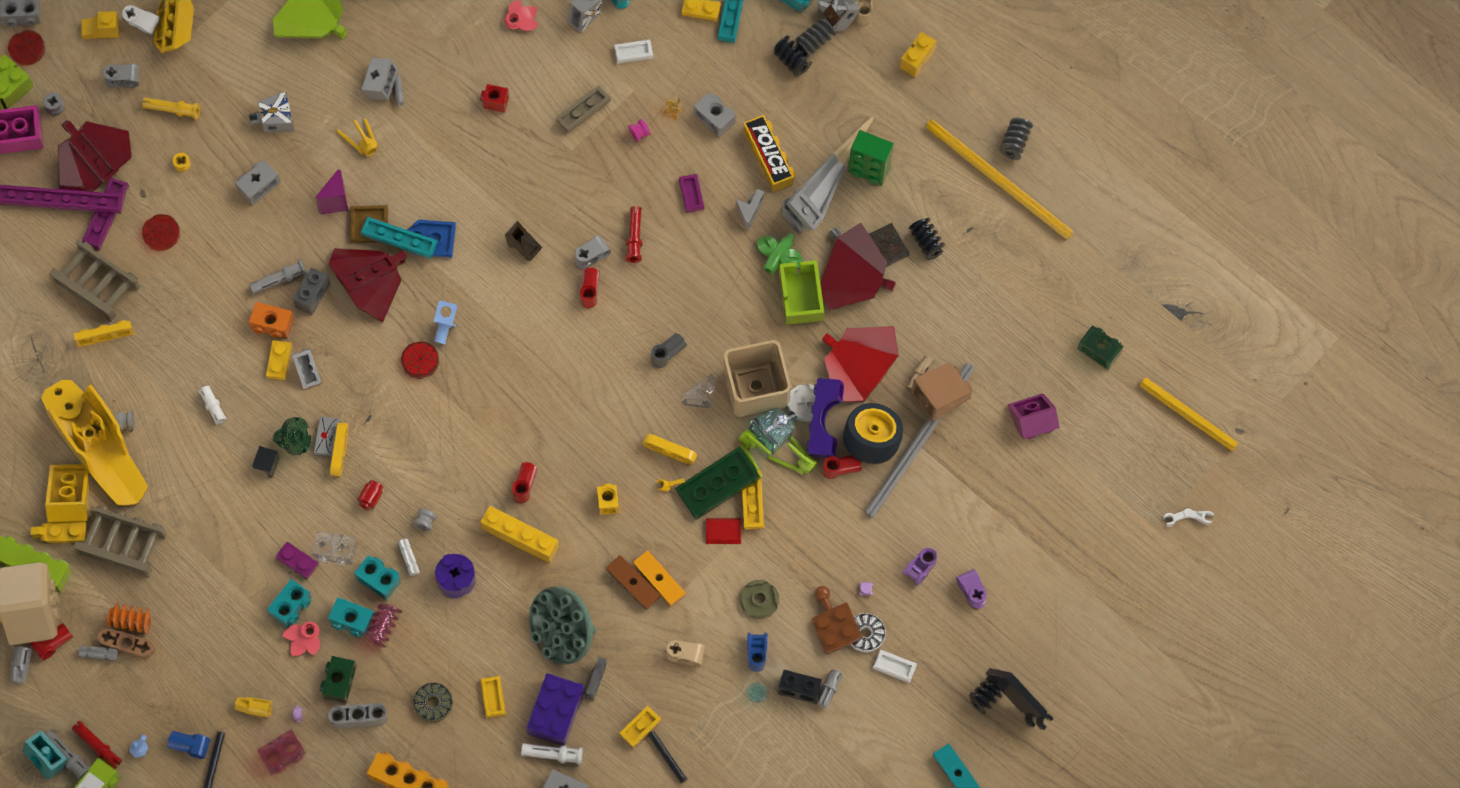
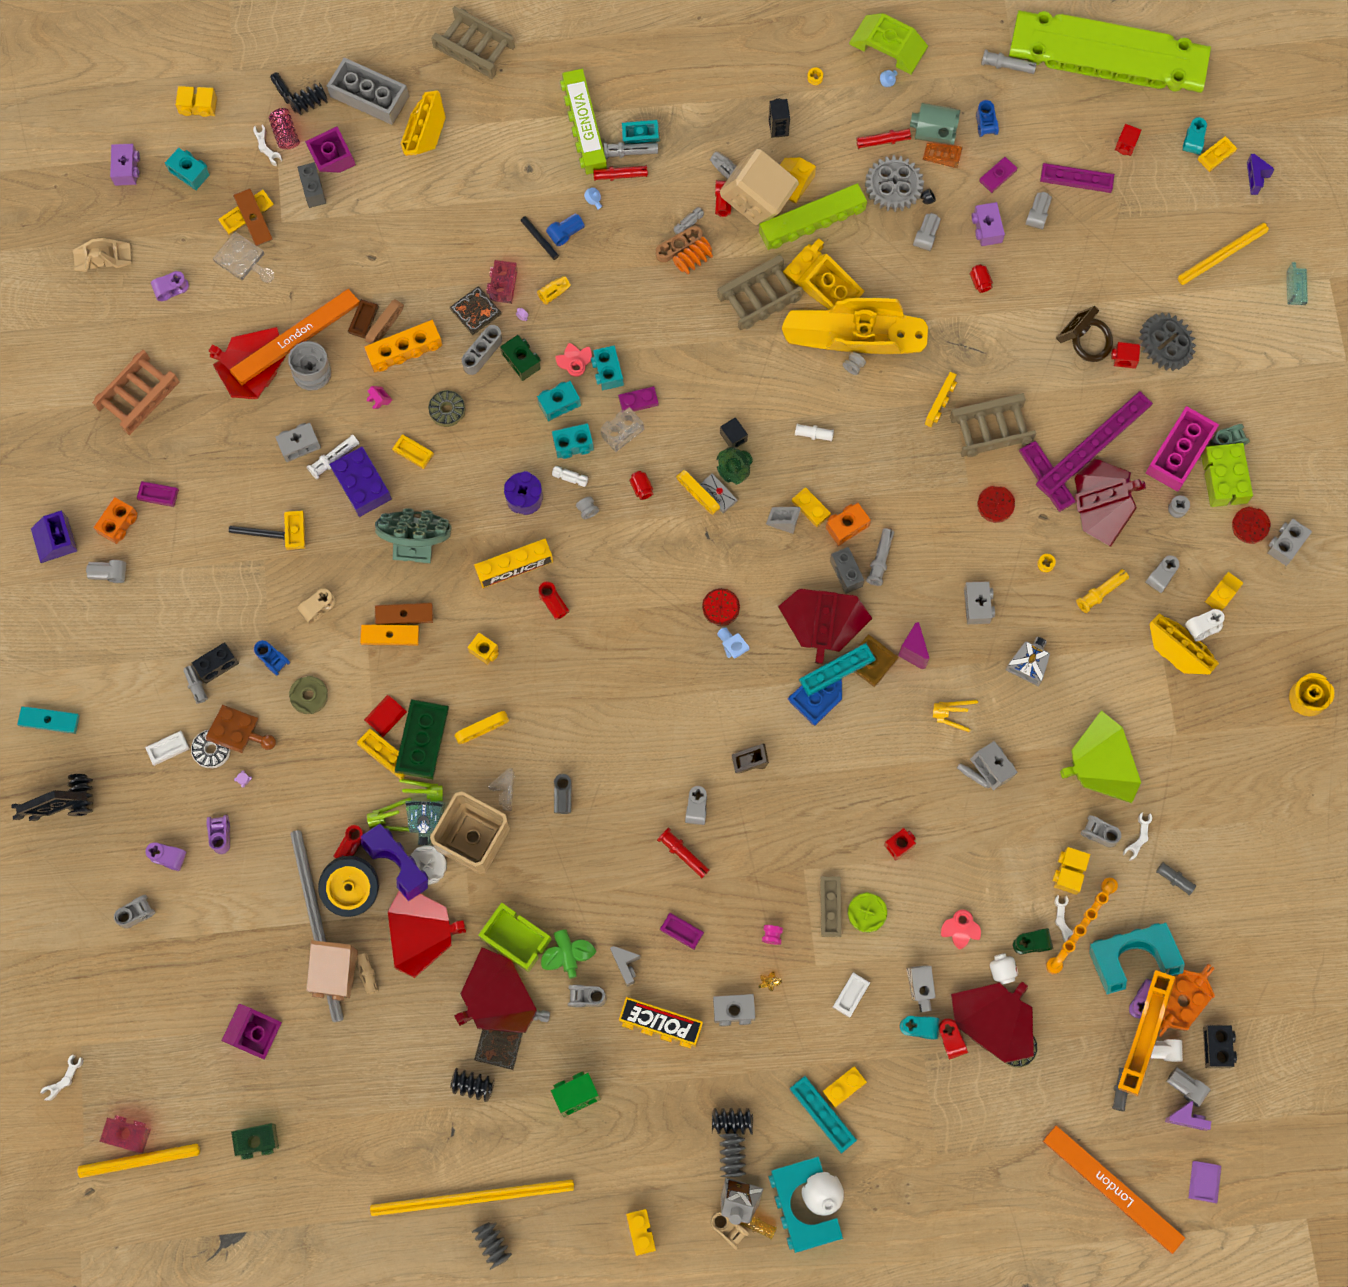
camera: 135 degrees right, 5 degrees up
(326, 755) = (475, 310): none -> clear smoke tile
(381, 624) = (531, 416): clear pink piece -> none
(469, 760) = (379, 395): none -> dark pink tile
(565, 85) = (867, 912): none -> lime tile
(589, 287) = (669, 781): red piece -> none
(596, 678) = (357, 528): flat silver tile -> none
(668, 484) = (457, 703): yellow hand -> none
(757, 692) = (242, 632): clear light blue plate -> none
(815, 194) = (584, 1020): light grey plate -> none
(1031, 573) = (135, 912): none -> light grey piece
(1182, 426) = (113, 1134): none -> clear pink brick

